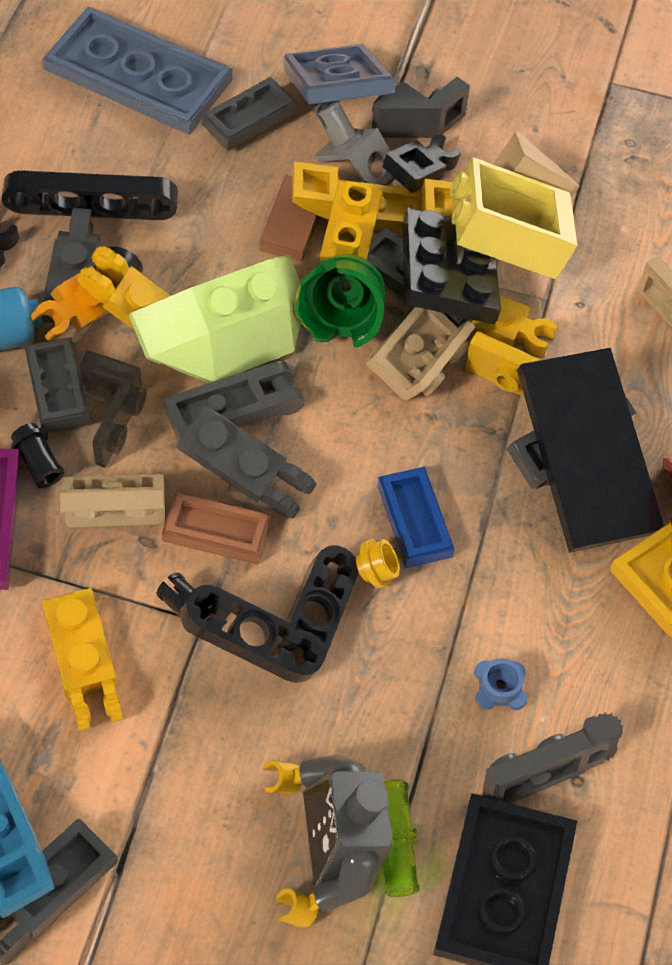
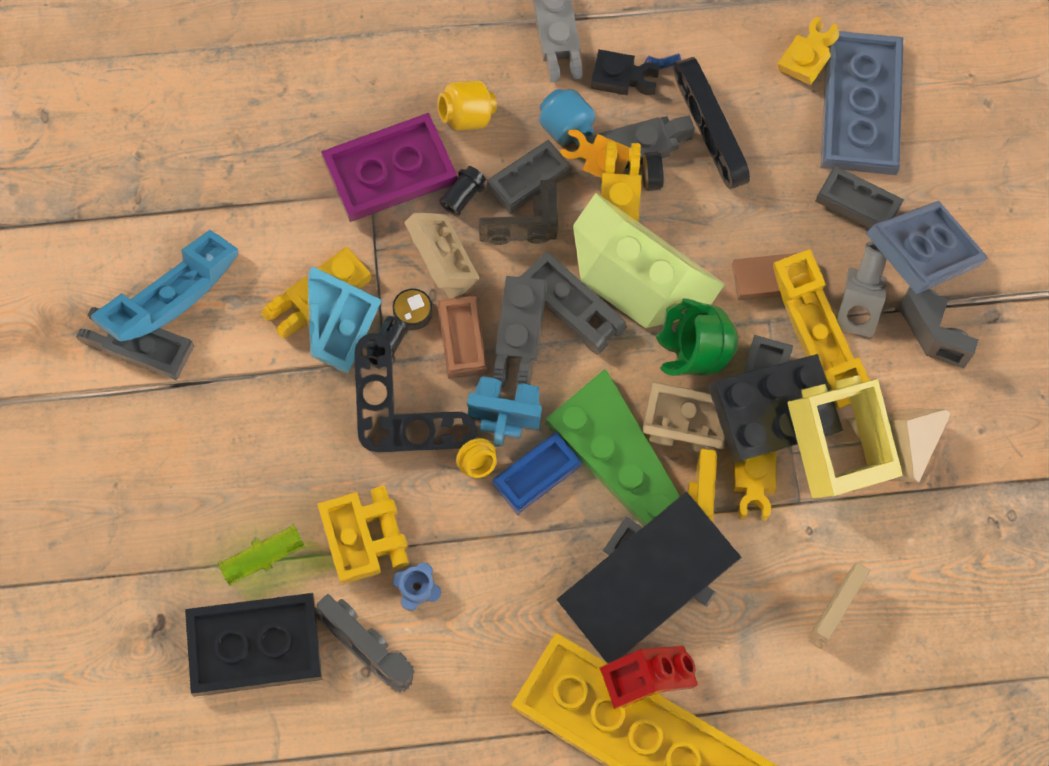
camera: 70 degrees right, 10 degrees up
(59, 84) = (808, 55): none -> yellow plate
(137, 640) = (337, 318): none -> medium azure wing
(156, 561) = (413, 308): none -> tile
(341, 498) = (501, 415): none -> dark azure hips
(344, 827) = (245, 511): dark grey torso -> none
(351, 220) = (771, 317): yellow hips -> none
(415, 162) = (879, 349): black plate -> none
(415, 730) = (350, 538): none -> yellow plate
(424, 431) = (614, 448): none -> bright green wing

